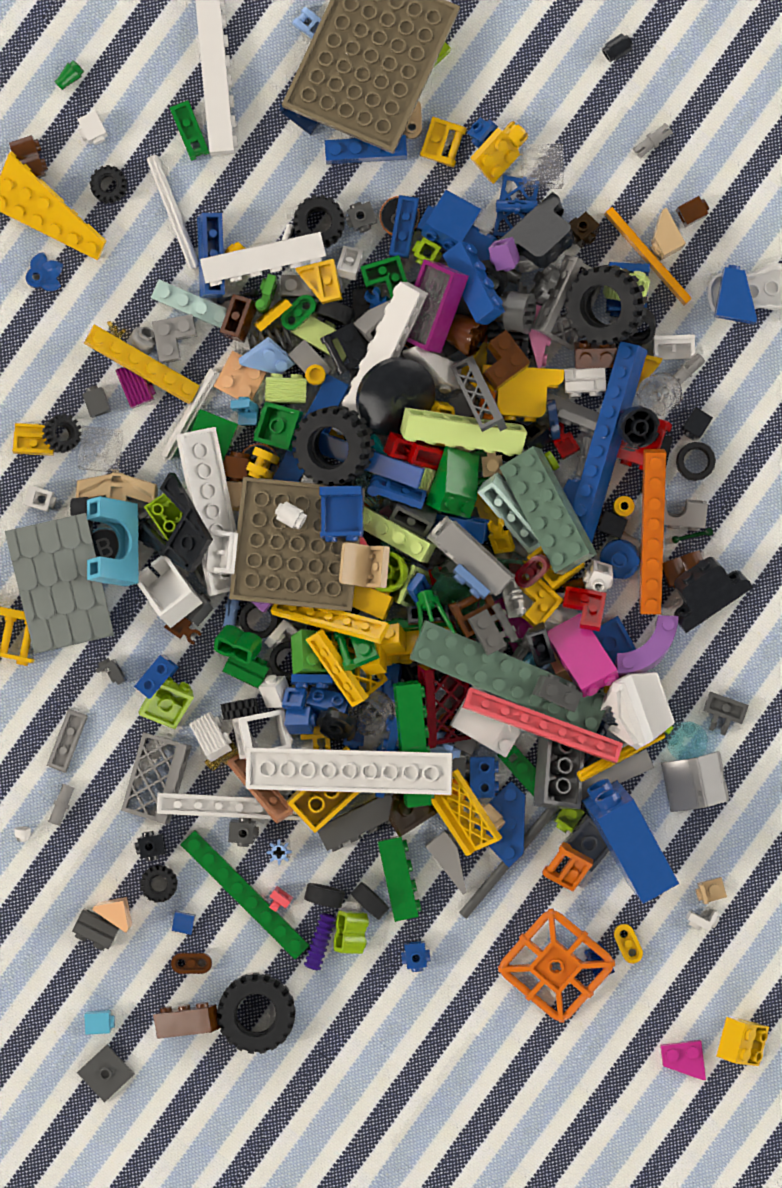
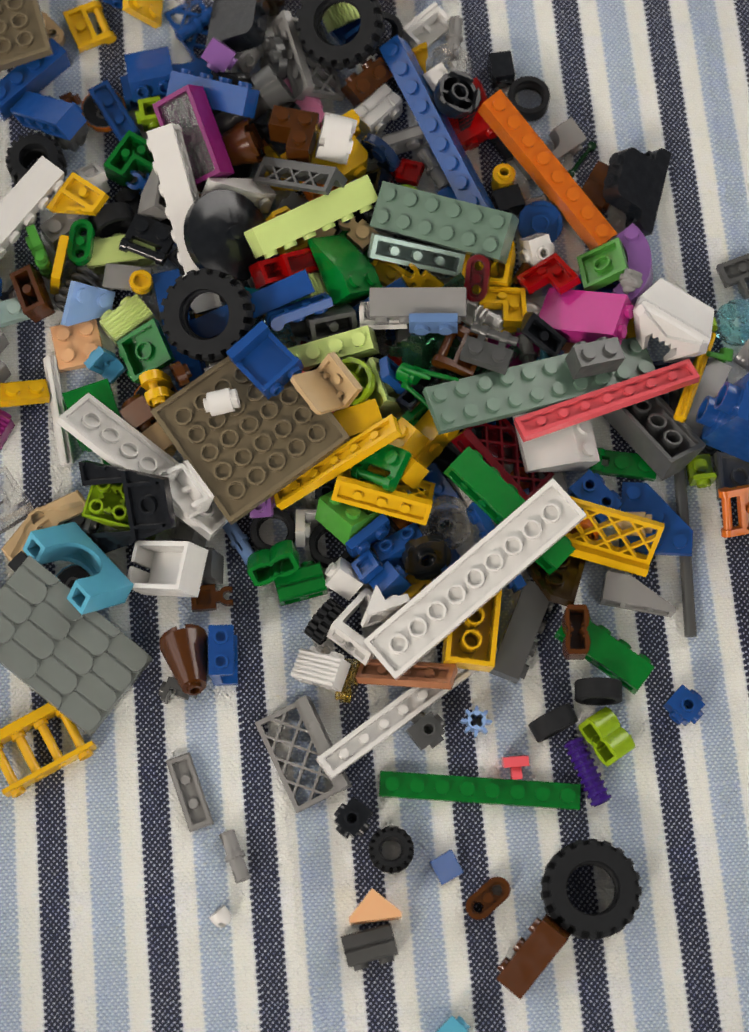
camera: 40 degrees left, 15 degrees down
(132, 659) = (187, 656): none -> reddish brown cone
(168, 703) = (254, 674): lime plate -> none
(276, 733) = (381, 609): none -> white slope
(285, 467) = (181, 373): none -> reddish brown plate
(353, 197) = (48, 115): none -> blue brick
(379, 192) = (69, 97): none -> reddish brown plate
(389, 851) = (574, 625): none -> reddish brown brick
(526, 389) = (335, 138): none -> white brick
(628, 630) = (602, 265): none -> bright green plate
(629, 661) = (630, 280): none -> light grey plate
(641, 397) = (434, 74): none -> white plate
(657, 756) = (724, 354): none -> bright green hand

